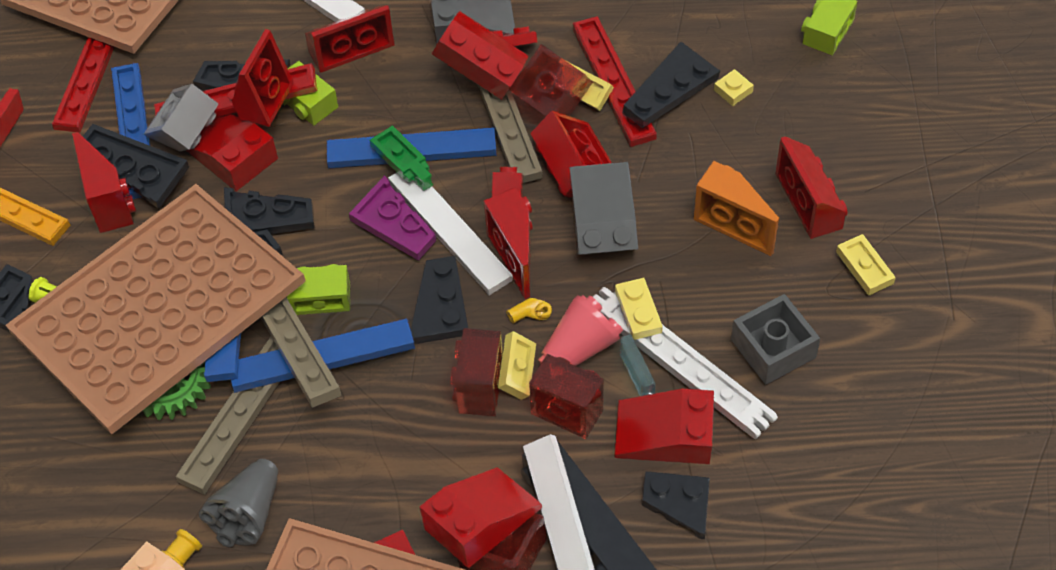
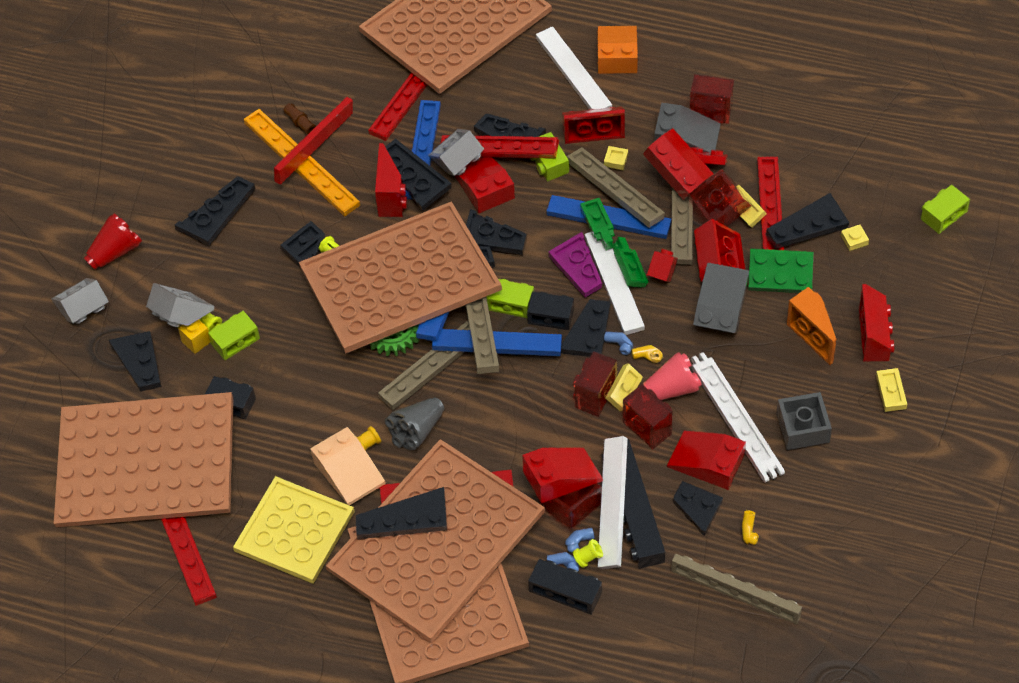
camera: 20 degrees right, 0 degrees up
(262, 83) = (517, 144): red slope -> none
(379, 290) = (550, 310): none -> black brick
(393, 71) = (616, 157): none -> light yellow plate
(409, 108) = (615, 187): none -> dark tan plate
(460, 198) = (629, 264): none -> green hinge
(490, 302) = (620, 338): none -> medium blue arm
(509, 232) = (653, 297): red slope -> none
(636, 366) = (703, 410): clear light blue tile -> none
(638, 308) = (719, 373): light yellow plate -> none
(662, 153) = (780, 270): none -> green plate
(758, 501) = (747, 528): none -> yellow arm

